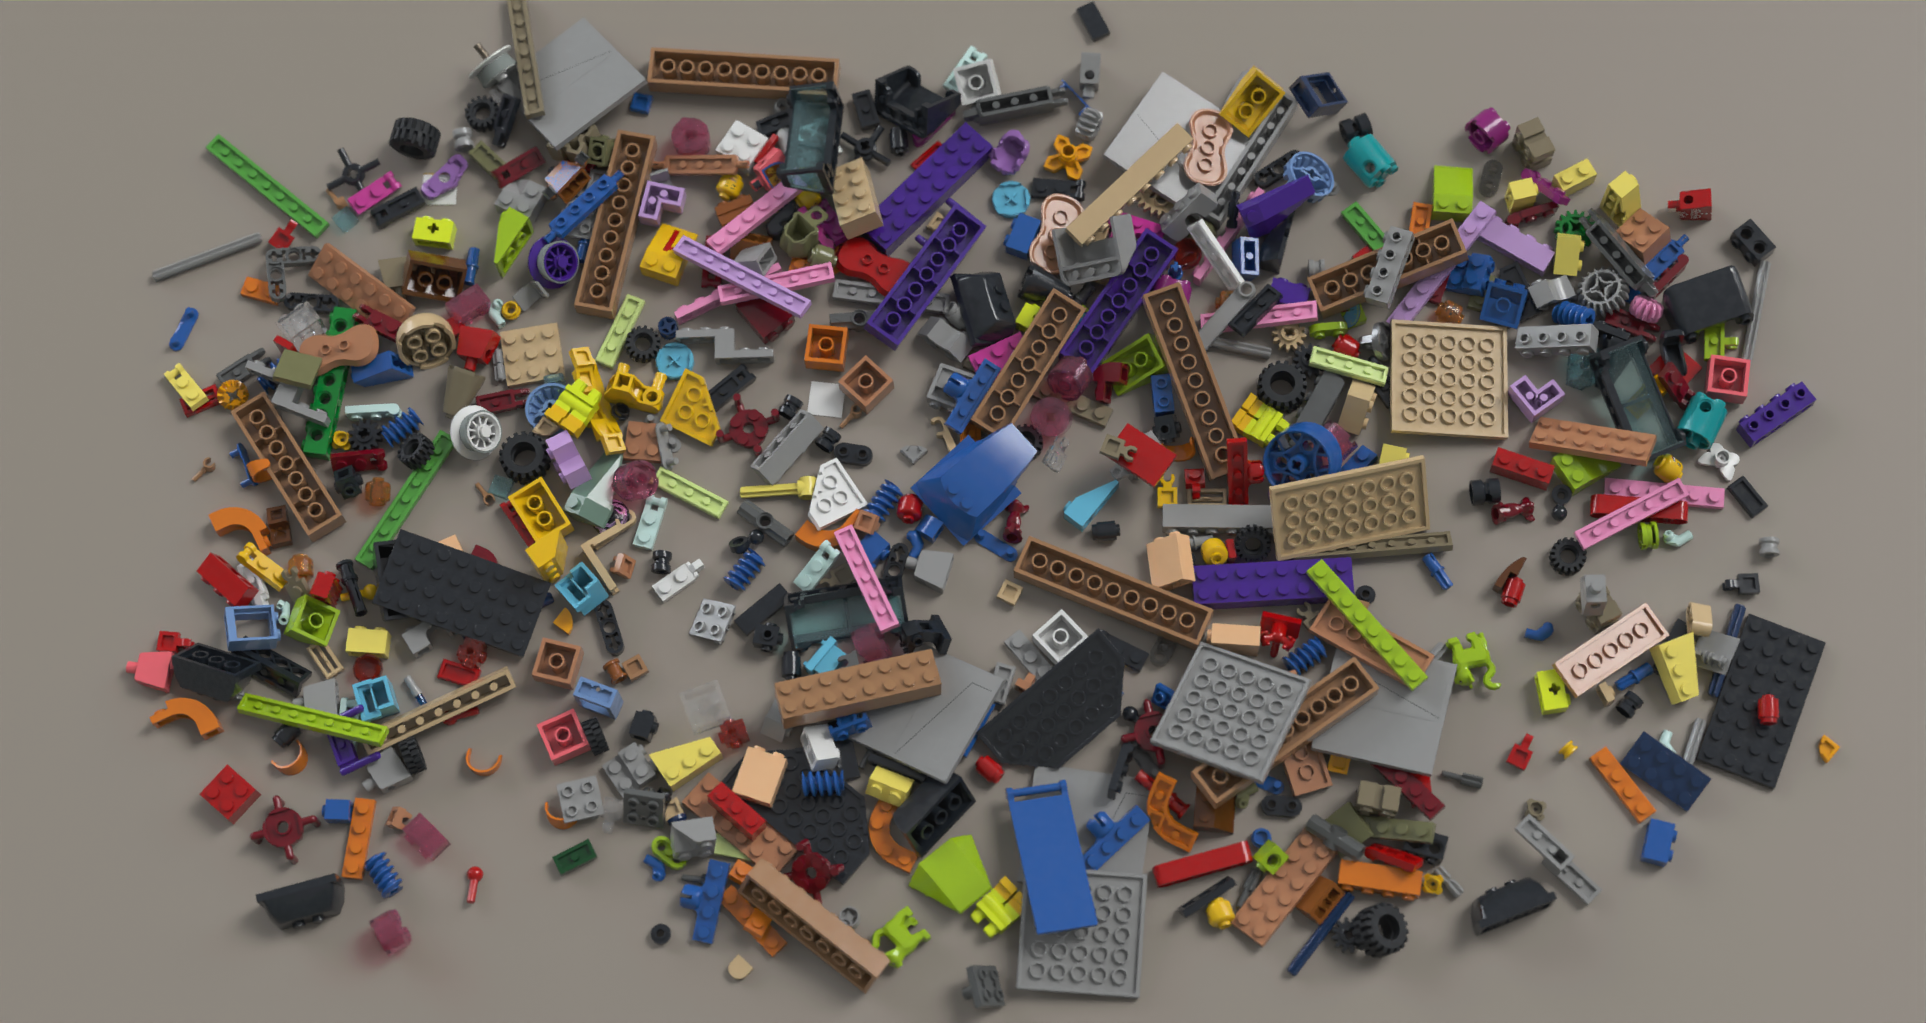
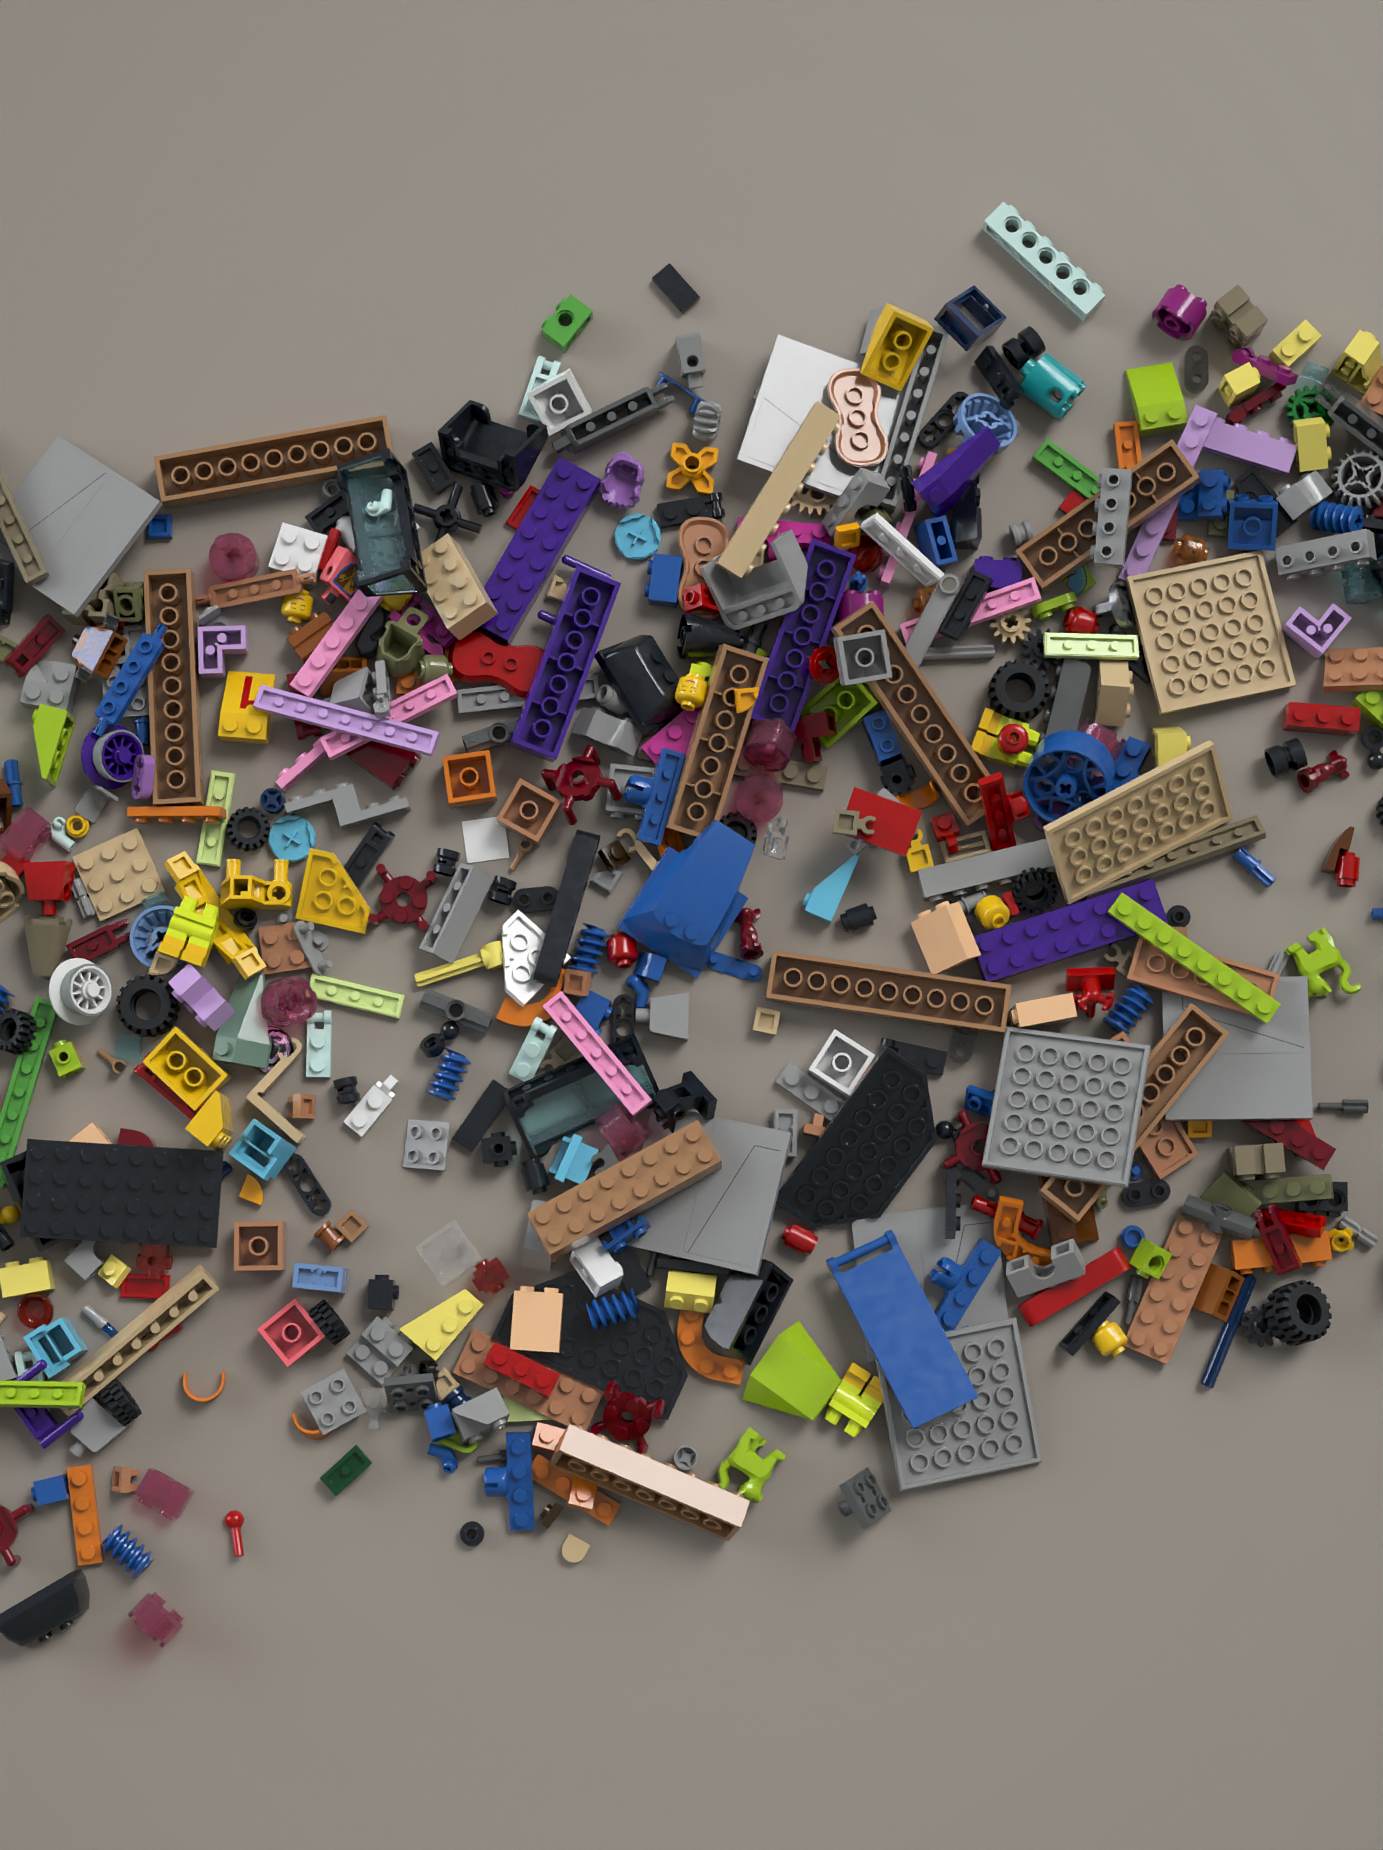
camera: 20 degrees left, 10 degrees up
(438, 655) = (114, 1271): none -> light yellow plate
(454, 487) = (74, 1062): none -> lime brick
(572, 282) = (143, 777): none -> medium lavender beam
(593, 318) = (186, 814): none -> orange plate
(659, 836) = (439, 1422): none -> blue brick
(728, 934) = (550, 1514): none -> dark brown plate
(776, 262) = (382, 692): none -> light grey hinge
(816, 125) = (382, 507): none -> light aqua arm
(874, 464) = (566, 908): none -> black beam
(903, 371) = (583, 790): none -> dark red plate
(924, 435) = (614, 855): none -> dark brown plate
(995, 36) = (564, 336): none -> bright green brick
(1018, 320) = (691, 691): none -> yellow head
(1045, 253) = (699, 598): none -> red bracket
(1059, 334) = (745, 698): none -> light orange tile
(1139, 326) = (827, 675): none -> red gear
(1158, 320) = (862, 657): none -> light grey slope
(1166, 845) = (1029, 1277): none -> light grey arch
(1175, 234) = (847, 535): none -> light orange plate
(1265, 420) = (1014, 747): none -> red head
(1329, 145) = (999, 377): none -> black plate
(1378, 867) = (1278, 1241): none -> dark red hinge
(1411, 107) = (1080, 305): none -> light aqua brick
(1585, 202) = (1315, 372): none -> clear light blue tile

